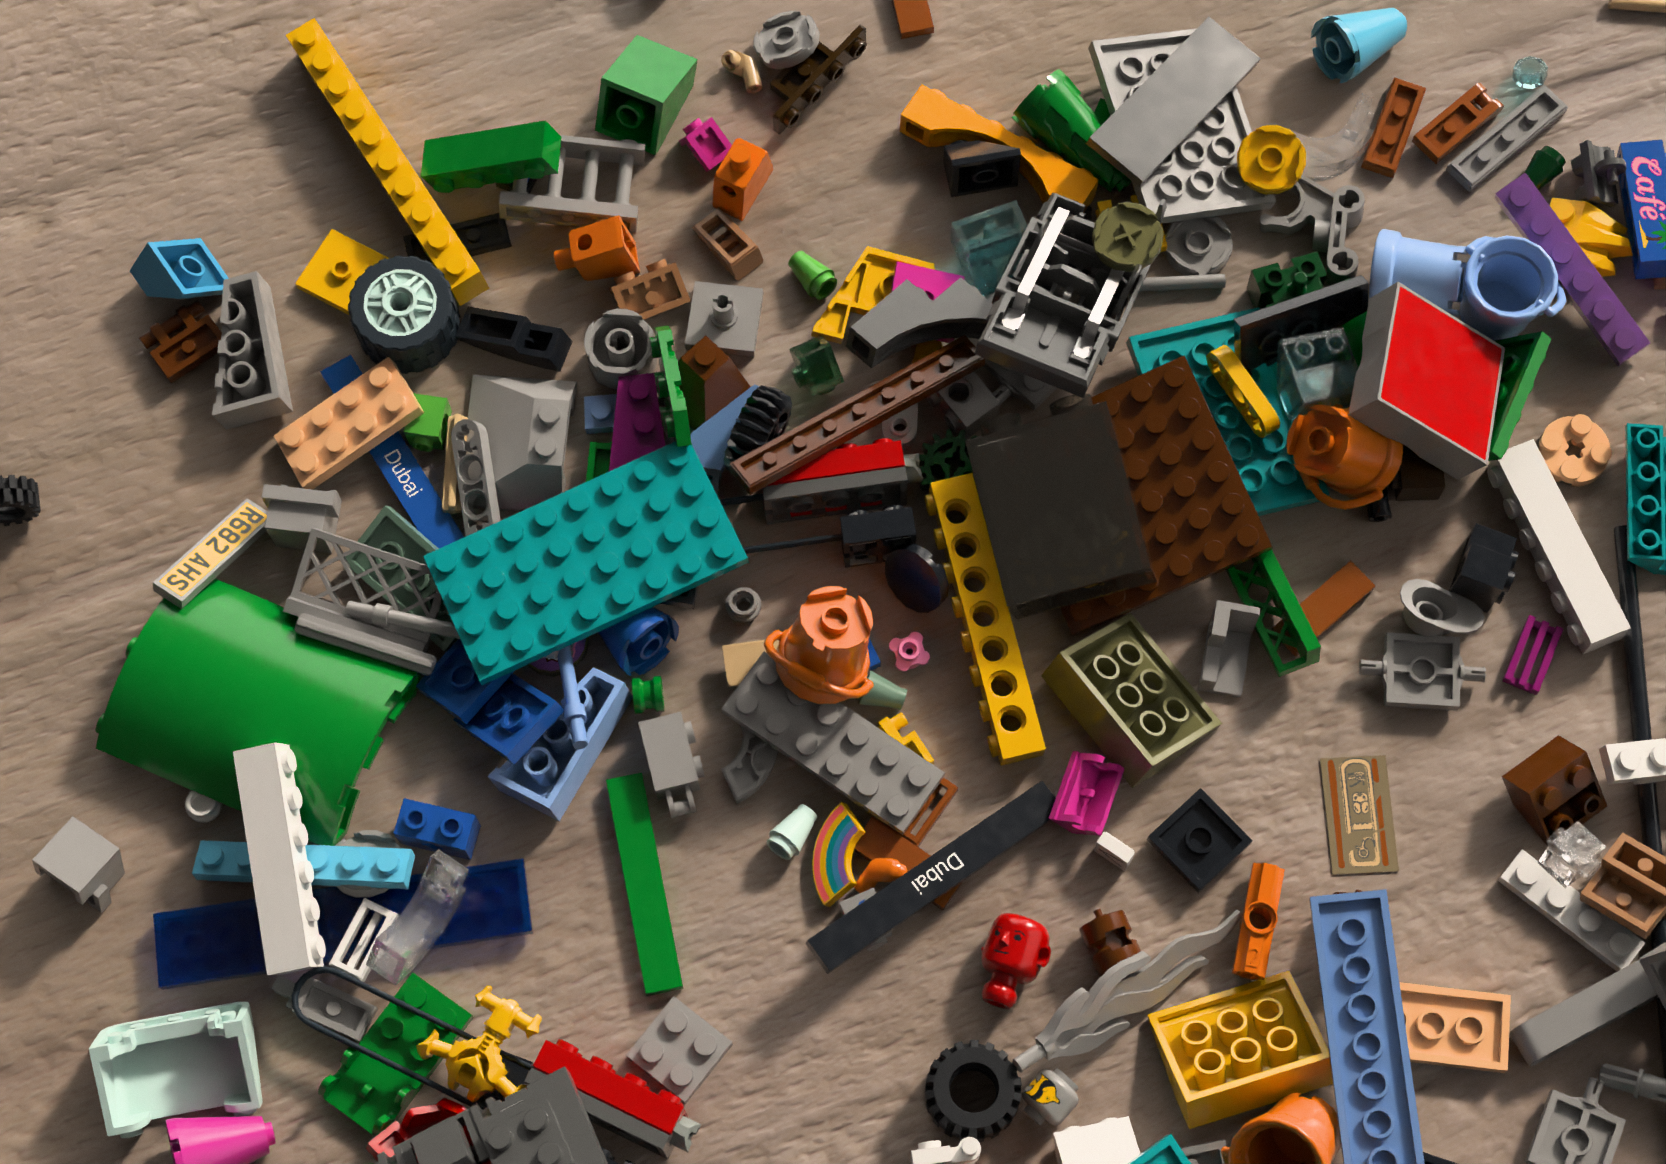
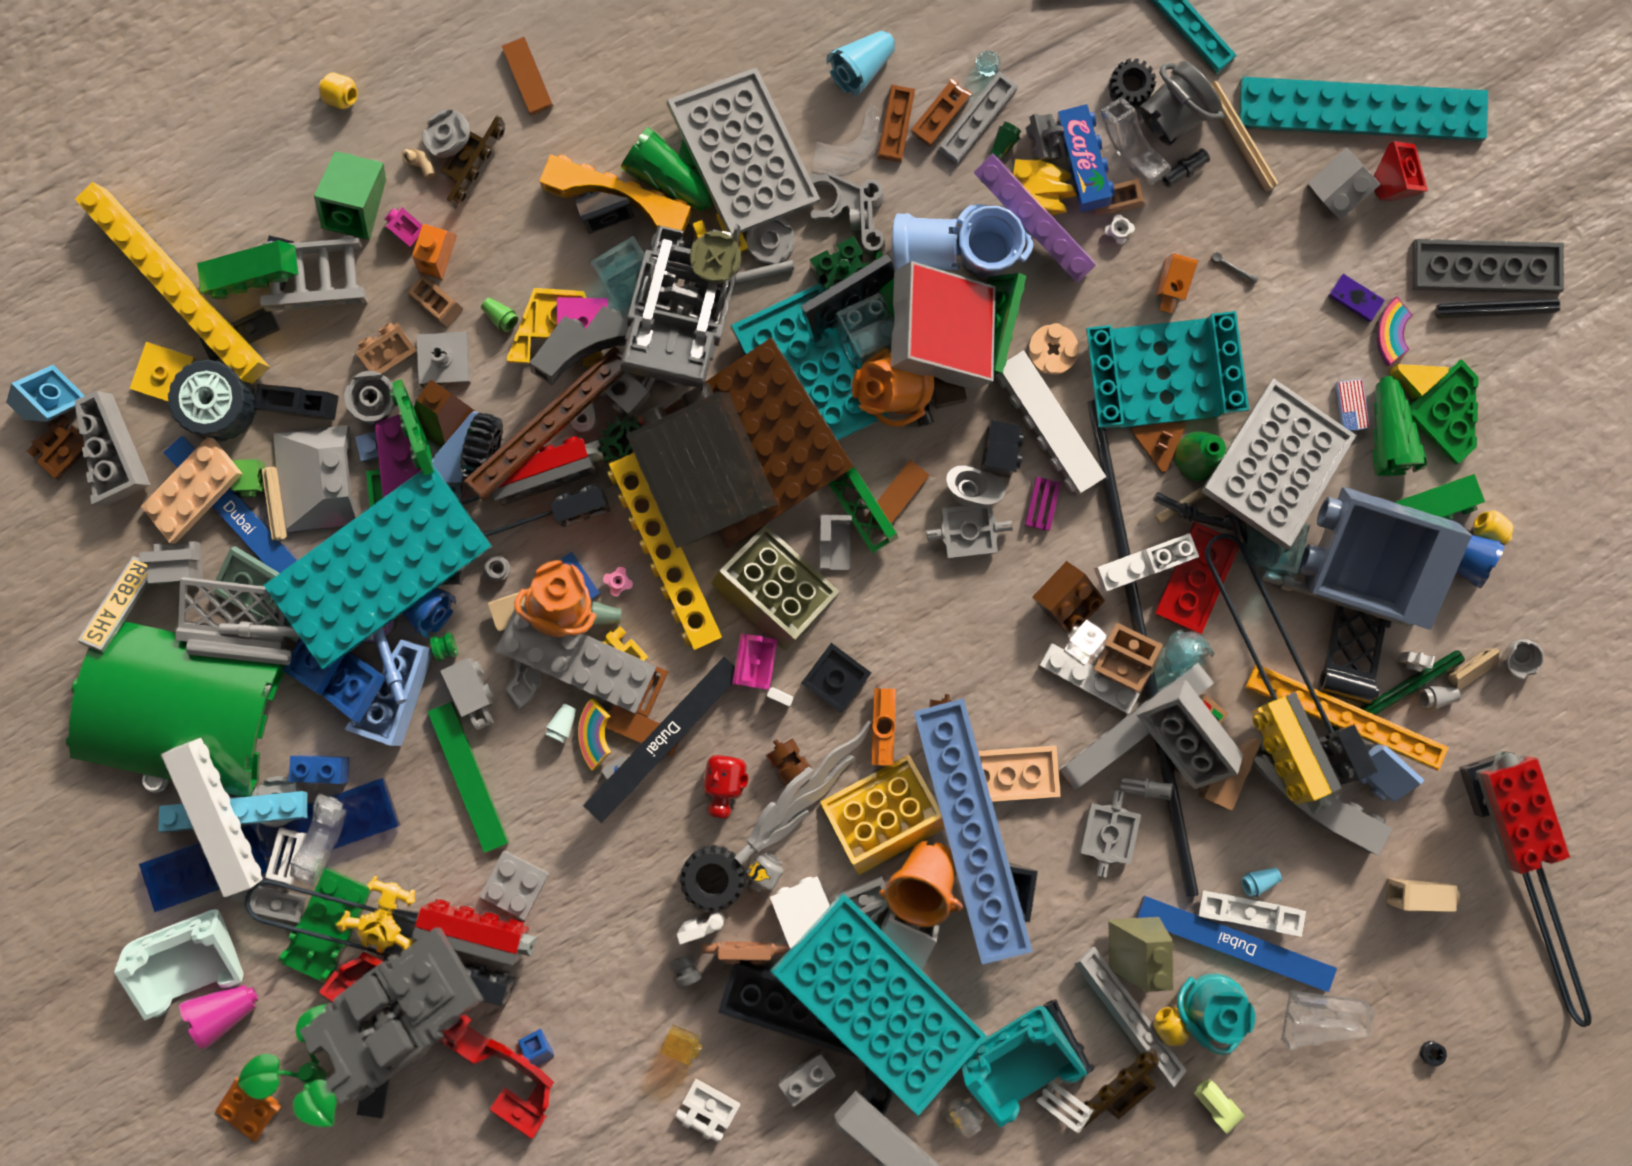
camera: 20 degrees left, 15 degrees up
(82, 863) = (78, 843): light grey plate -> none
(484, 484) = (296, 519): light grey beam -> none
(600, 250) = (343, 325): orange torso -> none
(815, 366) = (514, 386): clear green brick -> none
(879, 871) = (624, 741): orange arm -> none
(916, 578) = (611, 531): black tile -> none
(1173, 101) = (734, 136): tile -> none
(1243, 391) = (817, 352): yellow beam -> none
(1271, 159) = (811, 169): yellow tile -> none
(1359, 815) = (940, 637): sticker -> none

